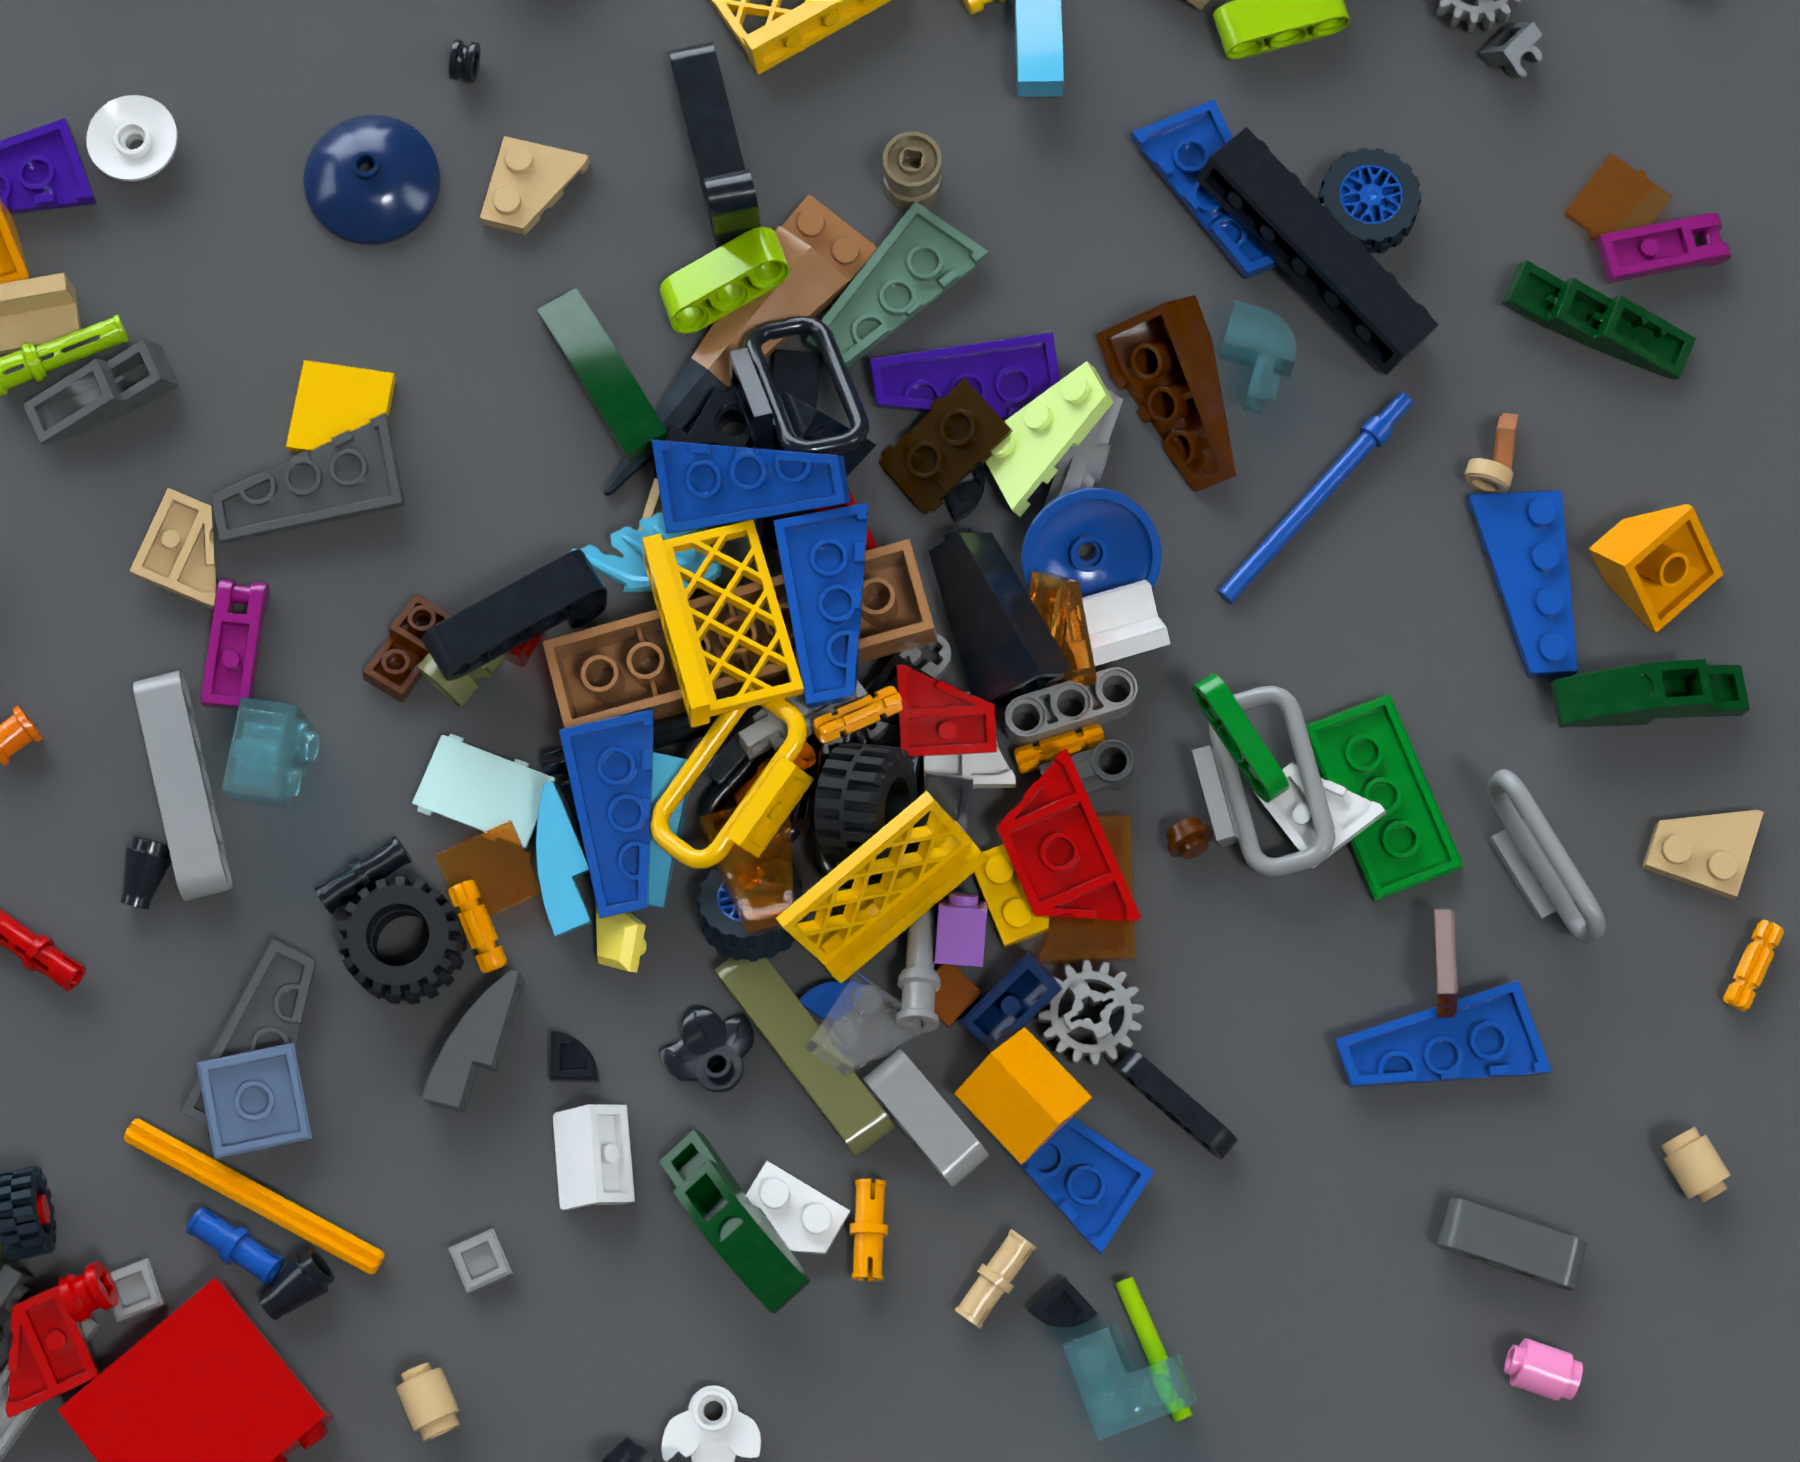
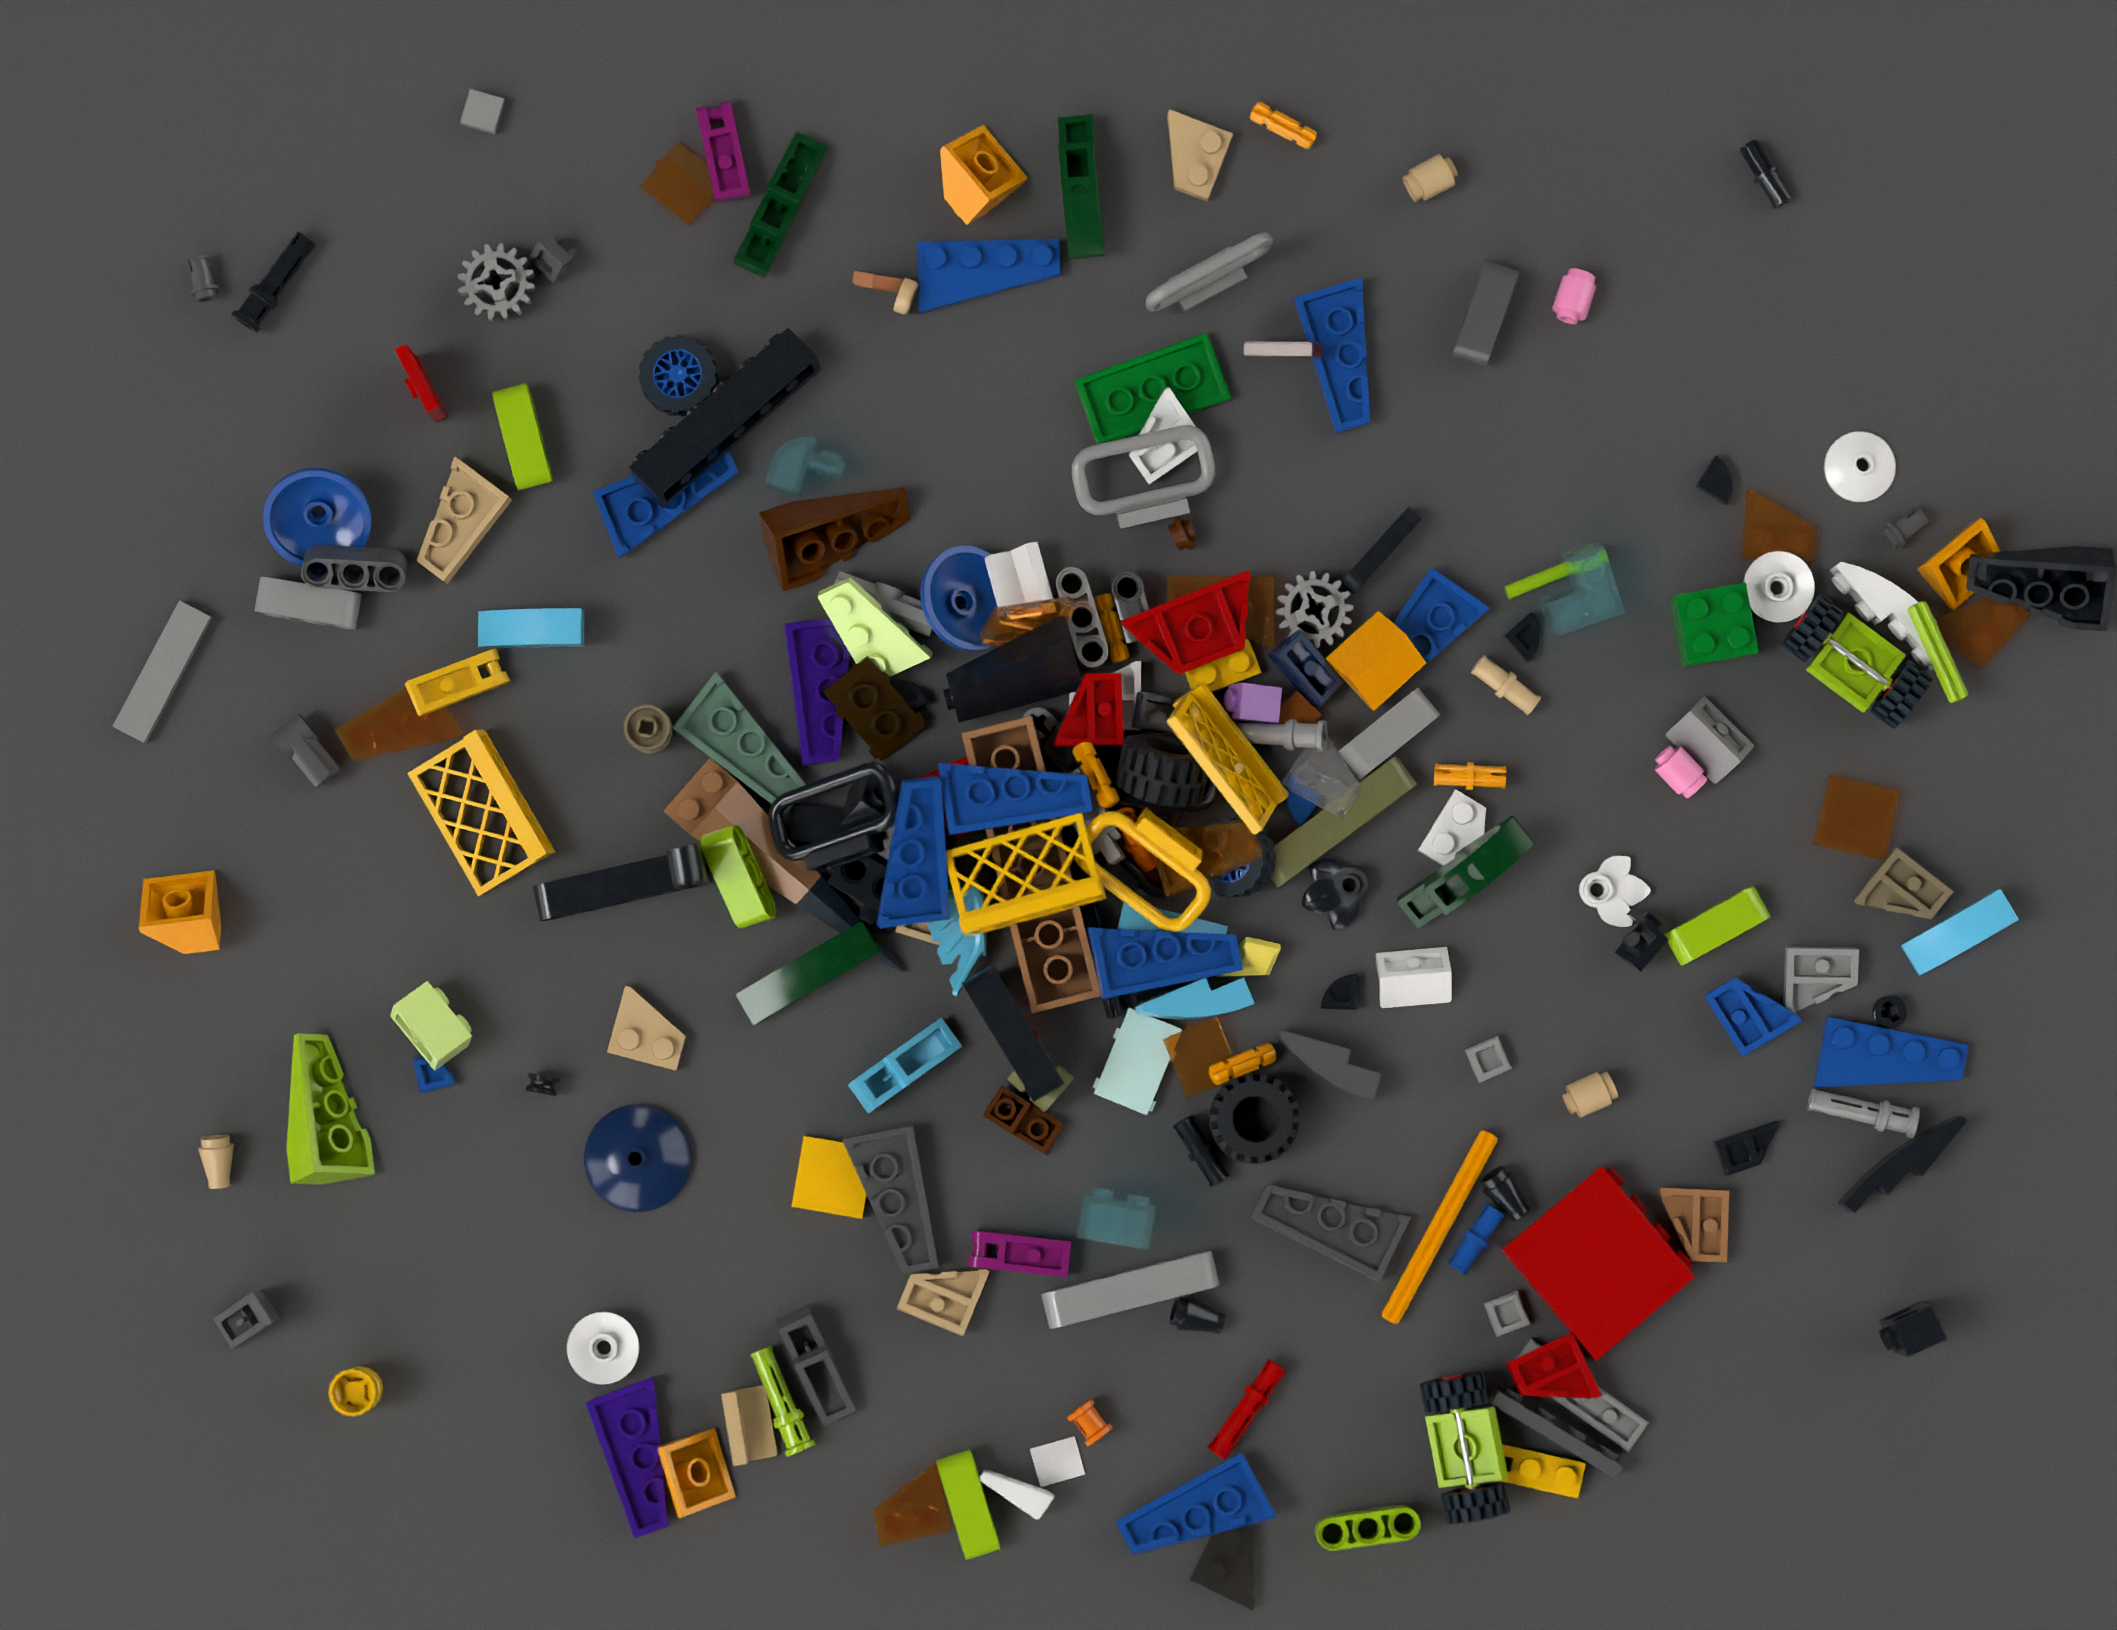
camera: 95 degrees left, 10 degrees up
(88, 1292) = (1511, 1342): red wheel -> none
(254, 1101) = (1372, 1226): sand blue tile -> none
(482, 495) = (904, 1065): none -> medium azure slope
(1240, 737) = (1114, 491): green beam -> none
(1373, 434) = (867, 380): blue bar -> none

